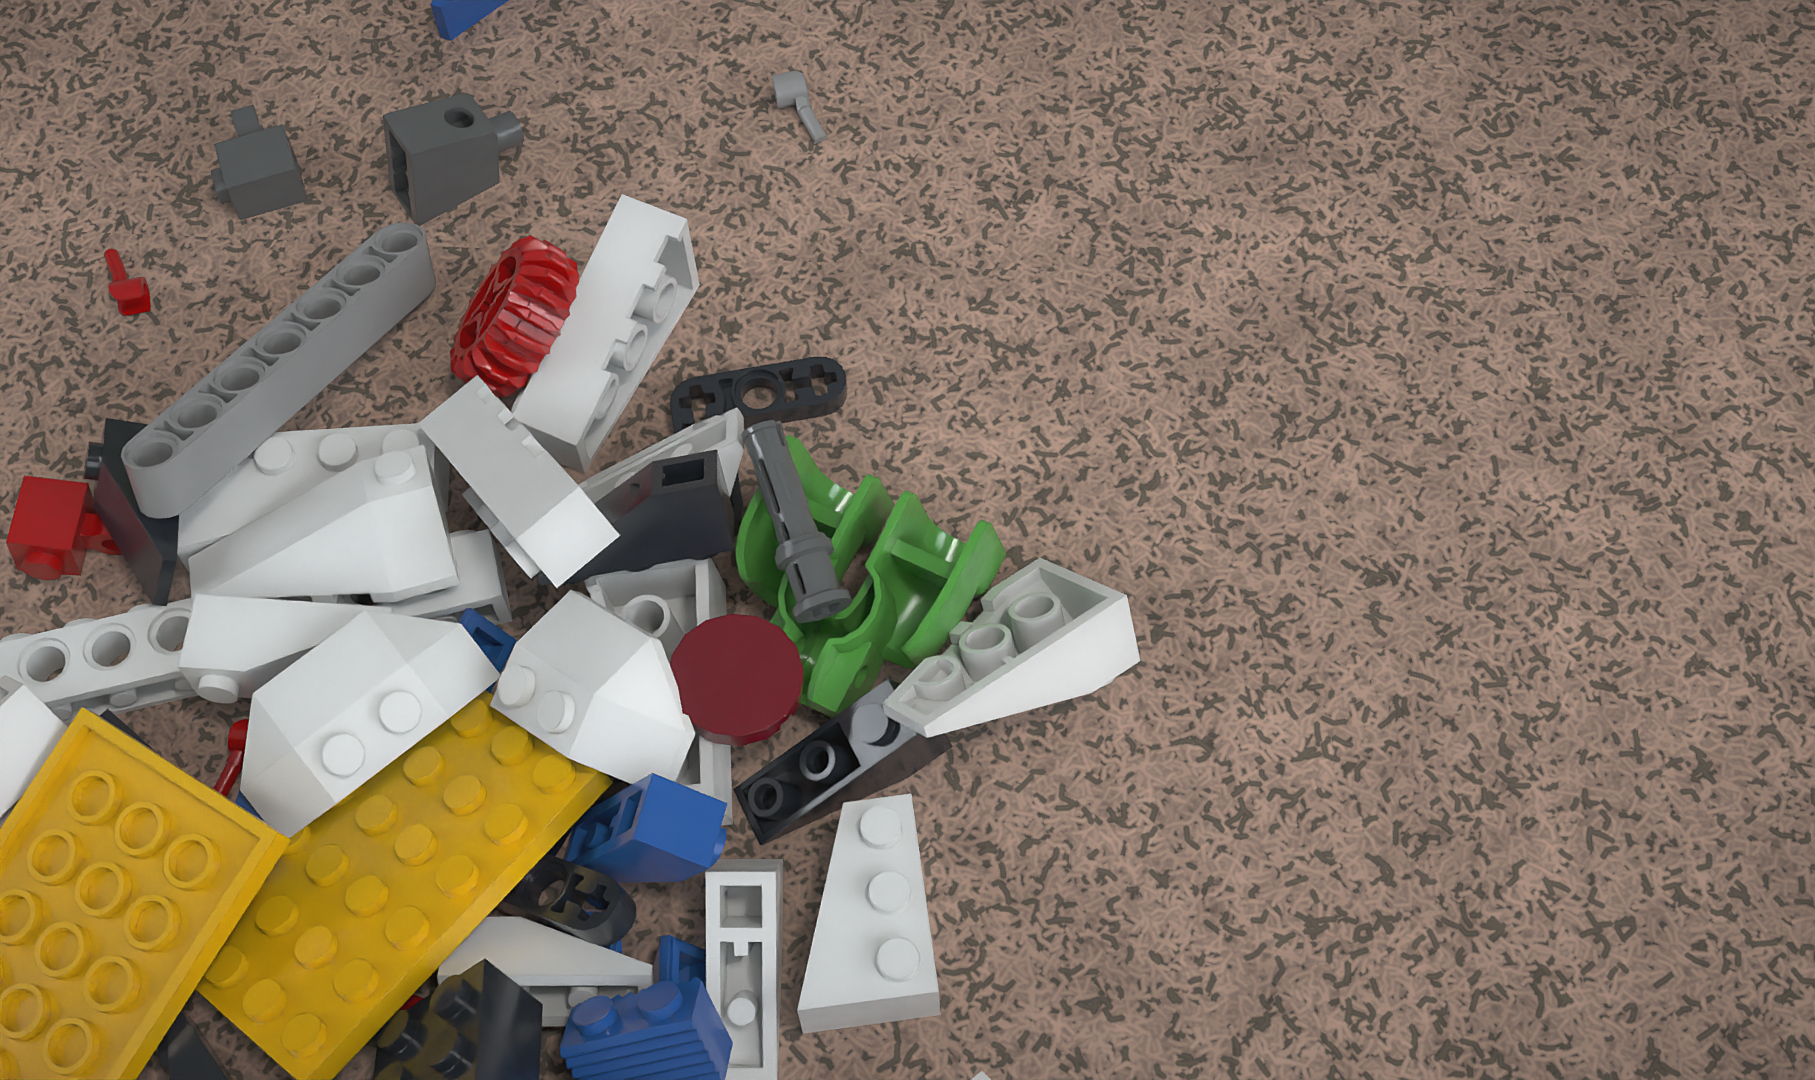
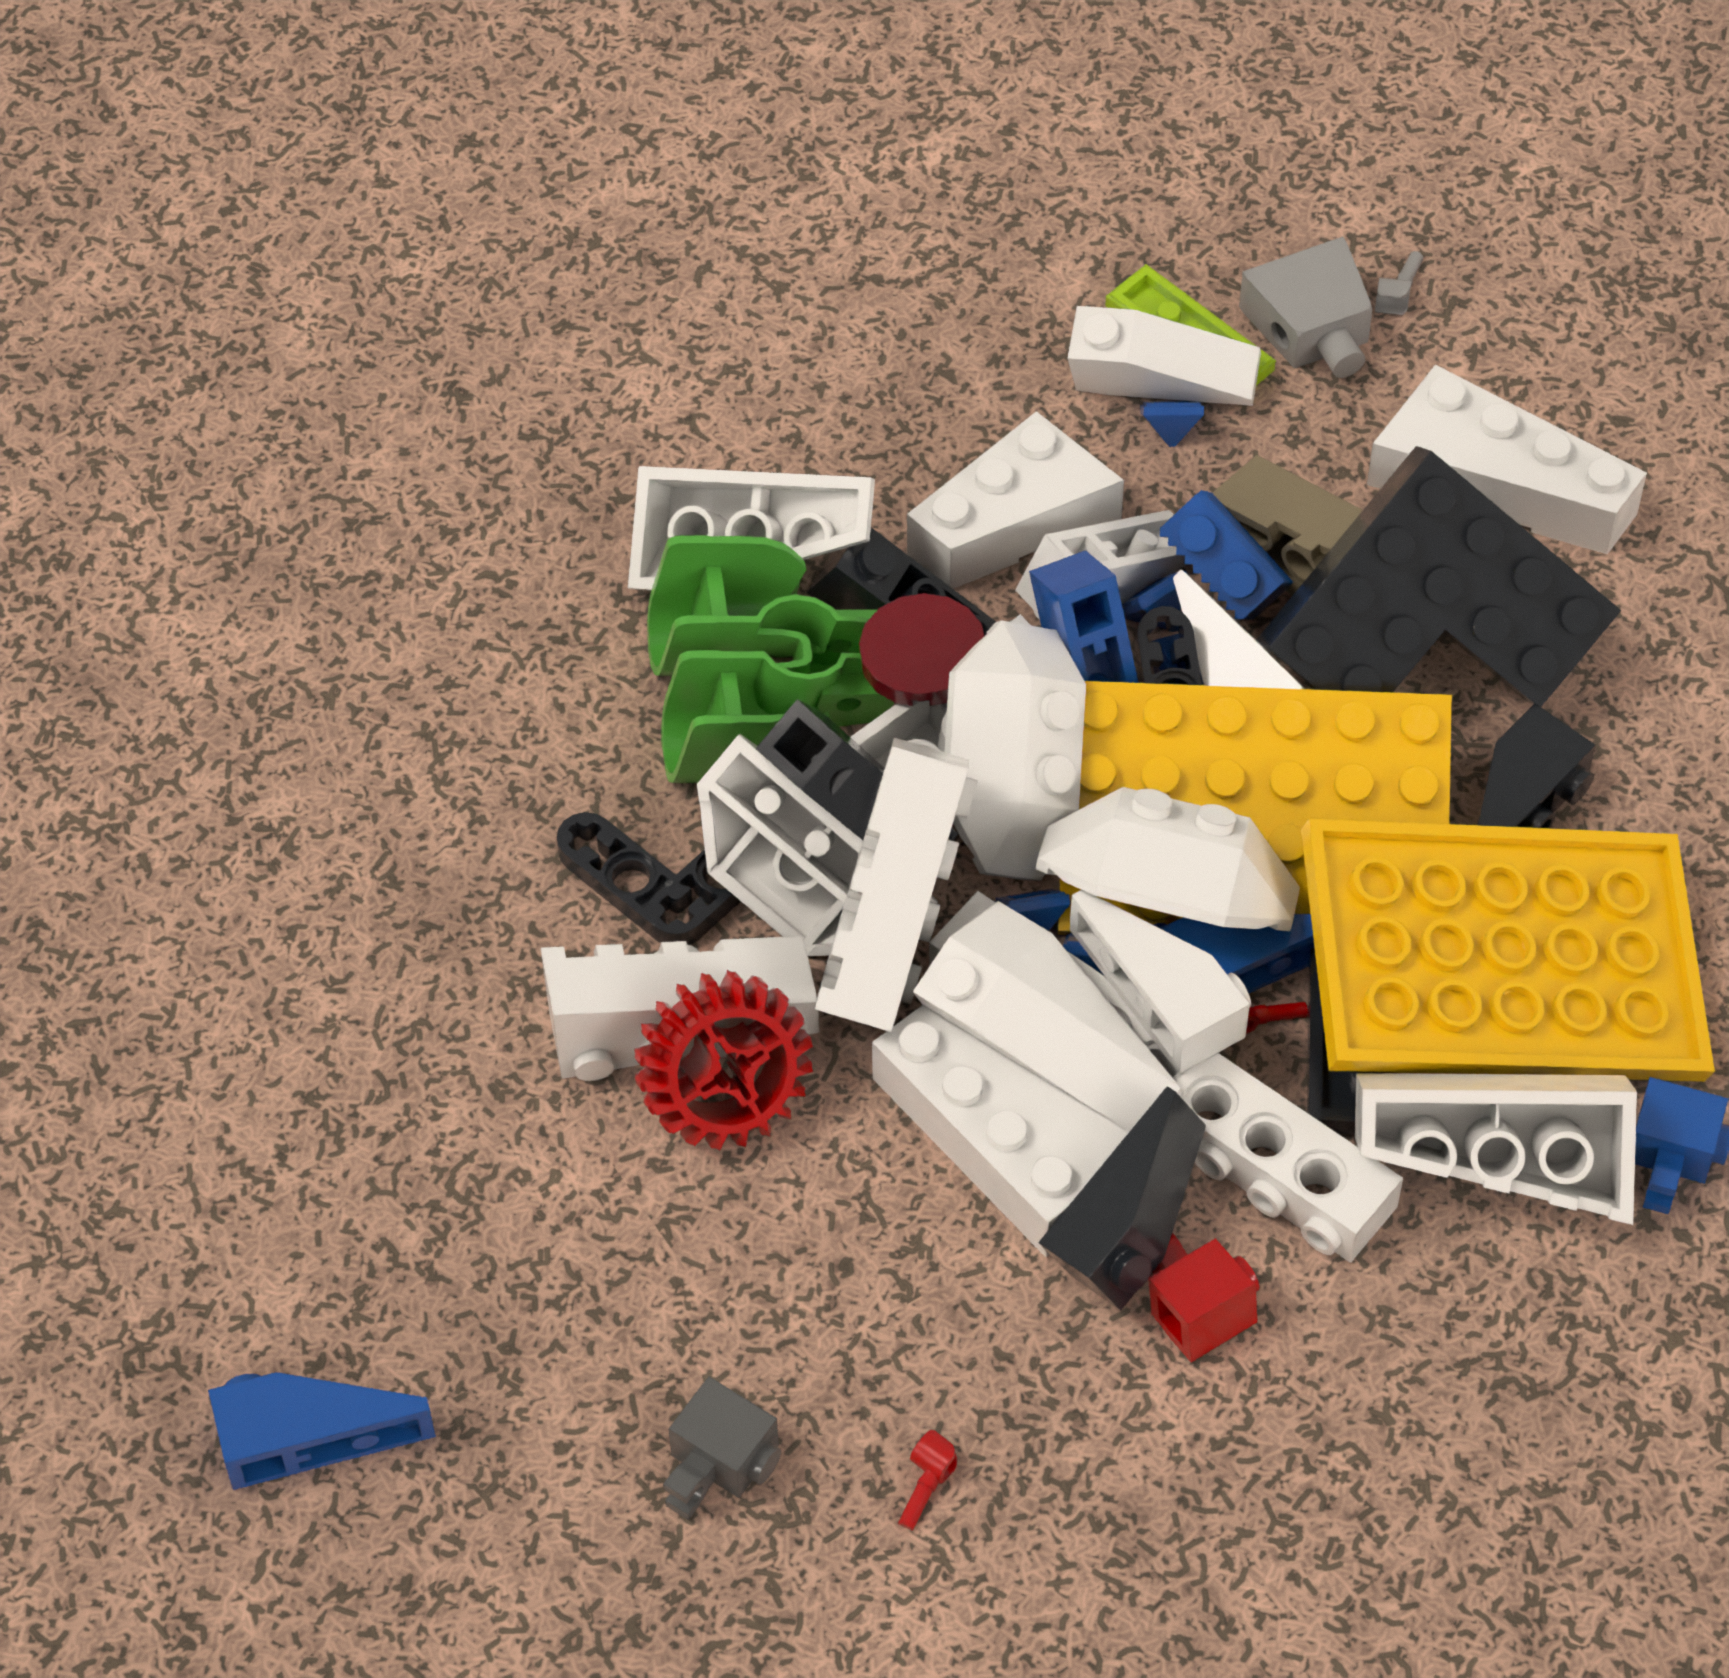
camera: 130 degrees left, 5 degrees down
(278, 371) = (947, 1192): light grey beam -> none
(445, 153) = (589, 1270): dark grey torso -> none
(790, 91) = (283, 1068): light grey hand -> none
(801, 548) = (787, 653): dark grey pin -> none

